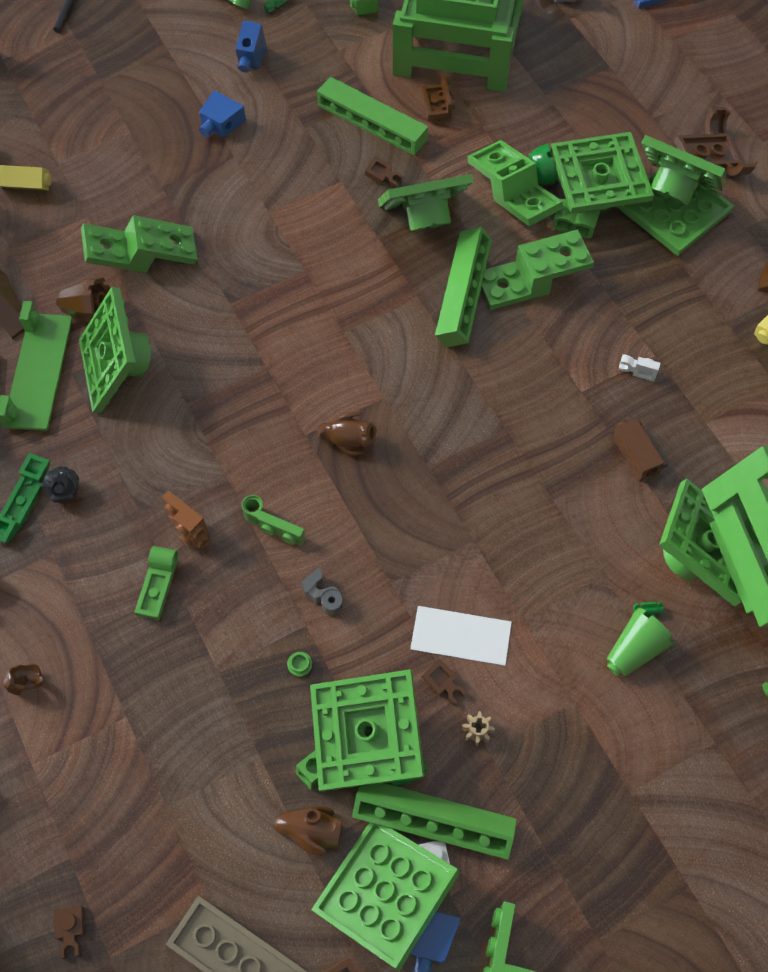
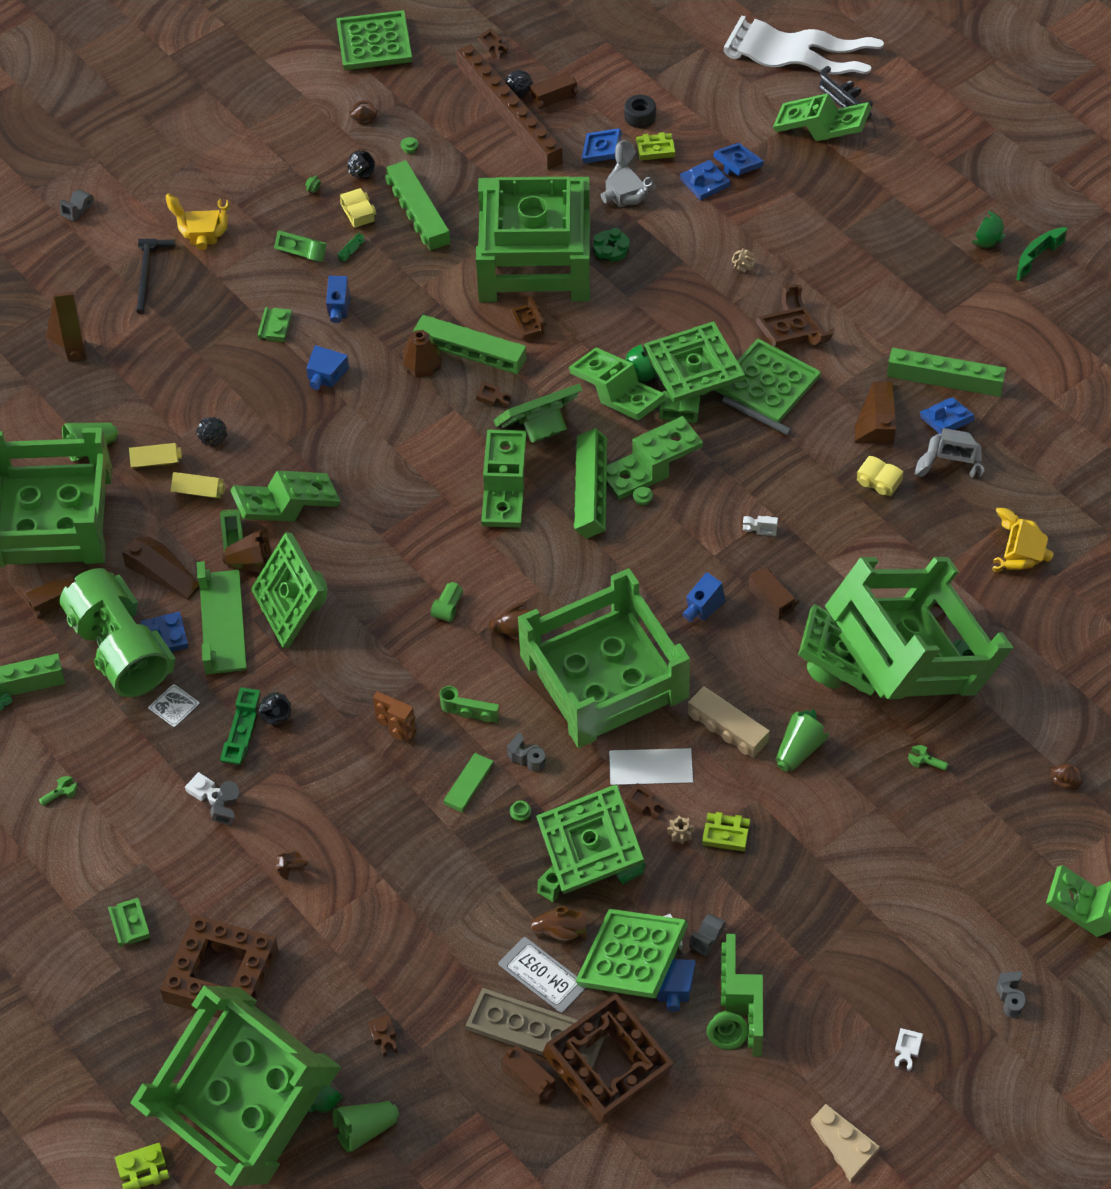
camera: 10 degrees left, 10 degrees down
(54, 216) = (197, 485): none -> light yellow brick
(75, 268) = (231, 526): none -> bright green slope
(86, 161) = (211, 431): none -> black piece
(157, 583) = (382, 770): bright green plate -> none
(183, 64) = (275, 324): none -> bright green plate
(250, 615) = (468, 782): none -> bright green tile
(276, 886) = (541, 974): none -> sticker
(277, 398) = (446, 605): none -> bright green piece
(320, 118) = (421, 354): none -> reddish brown cone
(371, 265) = (503, 478): none -> bright green bracket
(434, 508) = (608, 666): none -> bright green piece
(435, 818) = (659, 897): bright green brick -> none
(483, 879) = (708, 934): none -> dark grey leg
(517, 310) = (642, 495): none -> bright green plate
(529, 747) = (726, 836): none -> lime plate
(533, 31) = (615, 237): none -> green plate
(560, 600) = (728, 722): none -> tan brick
(561, 443) = (704, 598): none -> blue torso
(656, 242) = (756, 415): none -> dark grey bar
(672, 74) = (743, 260): none -> tan gear
(680, 172) = (764, 352): bright green piece -> none

